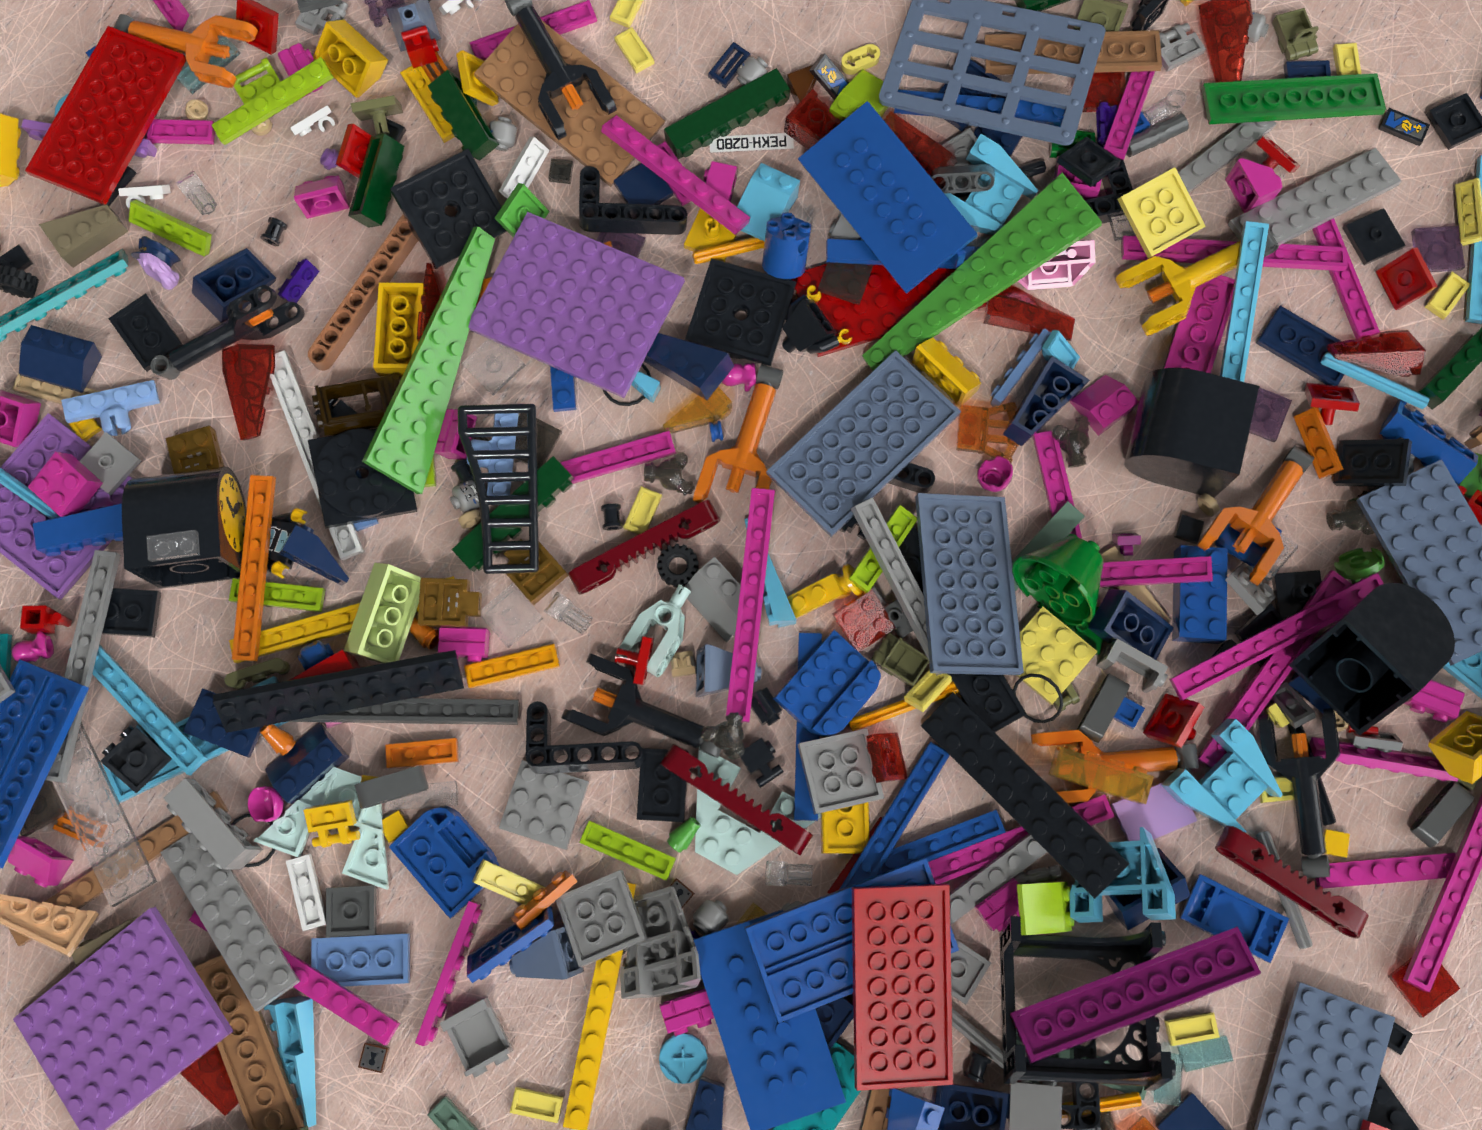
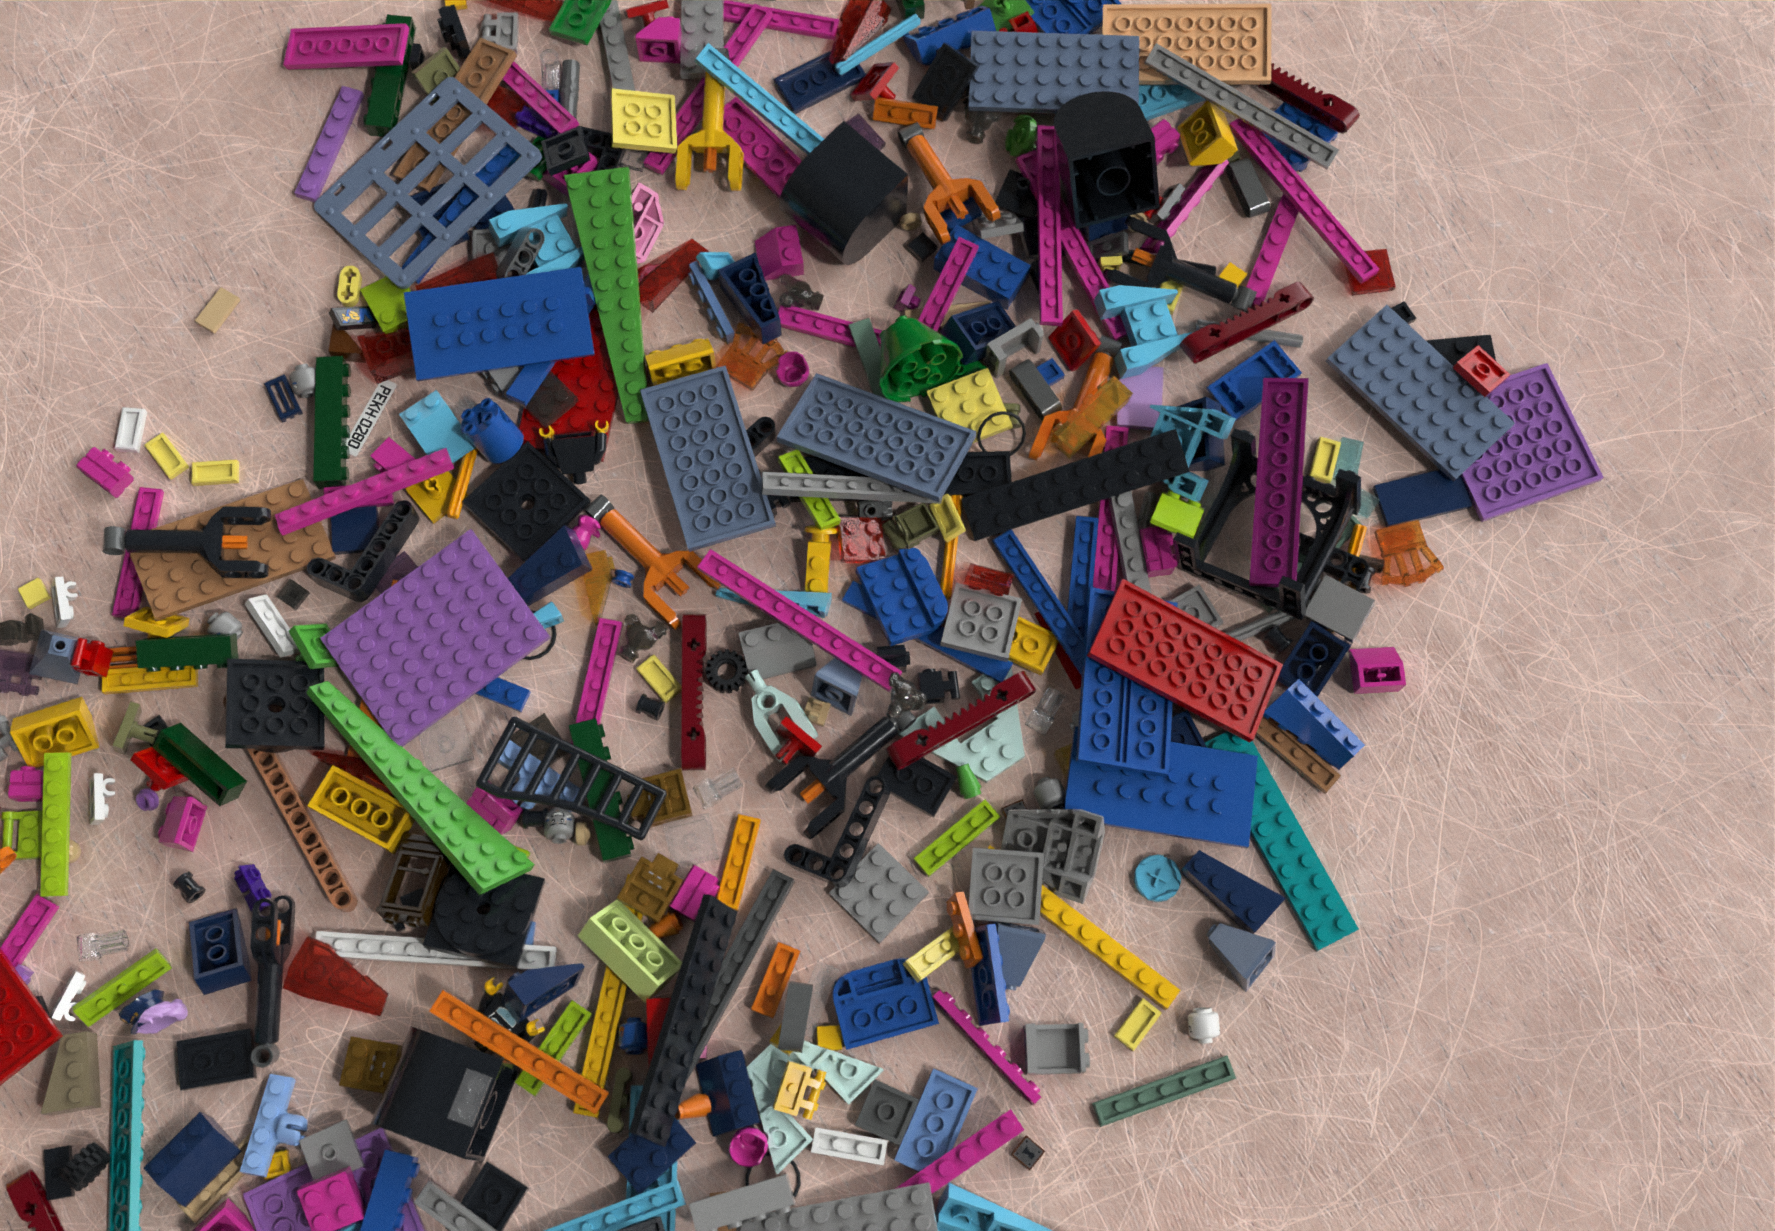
camera: 70 degrees left, 5 degrees down
(196, 110) = (13, 906): tan tile -> none
(687, 1011) = (1120, 853): dark pink brick -> none

